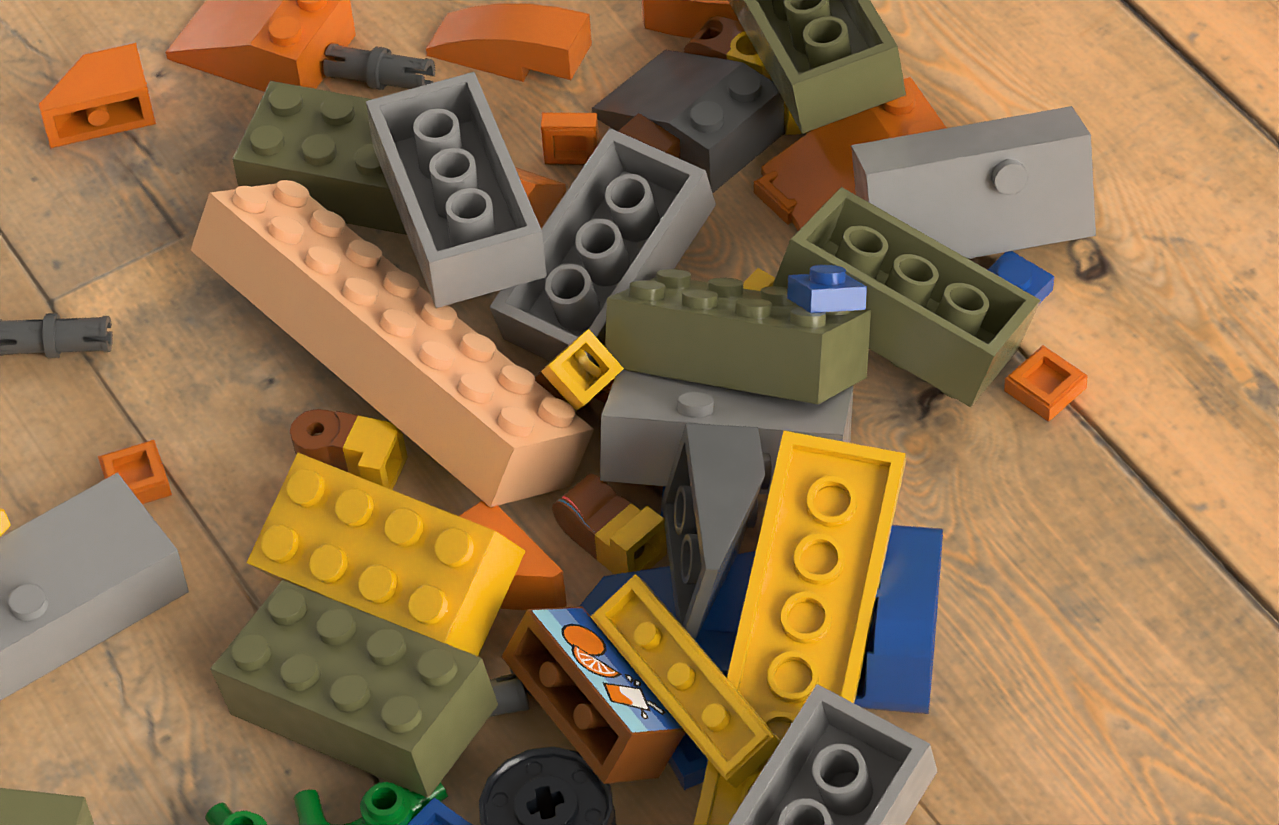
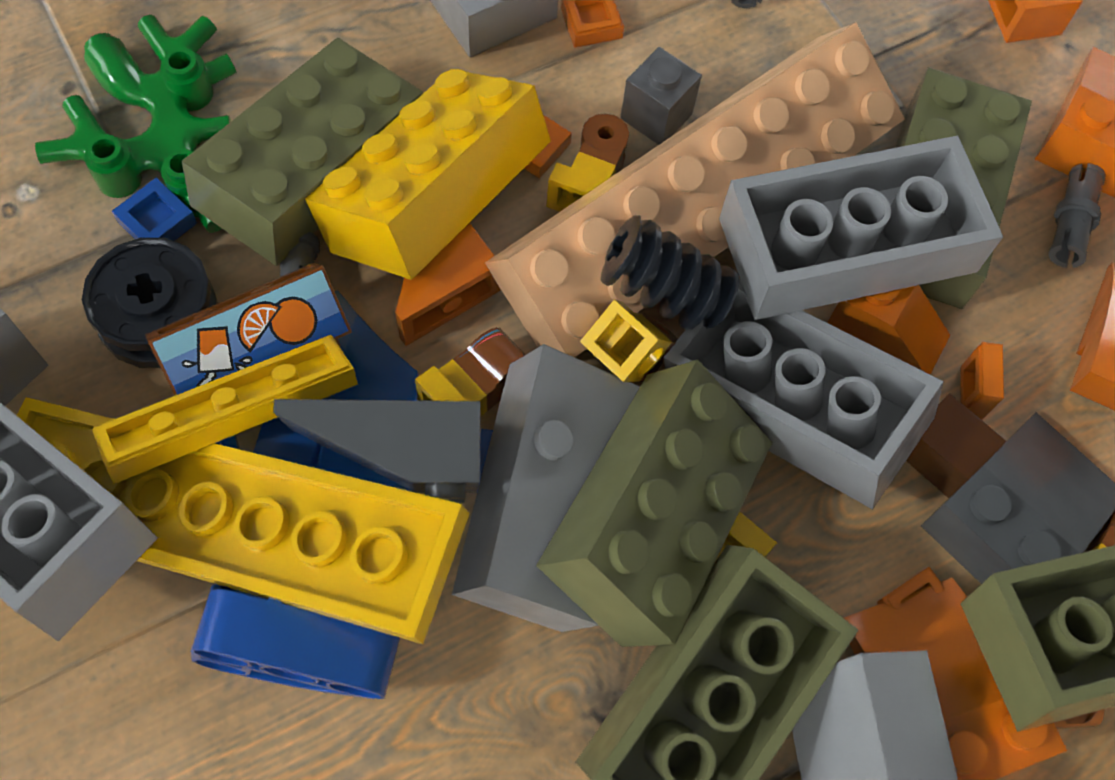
camera: 85 degrees right, 15 degrees up
(259, 392) = (660, 96): none -> flat silver brick
(516, 328) = (670, 271): none -> black piece
(826, 290) = (668, 580): blue plate -> none

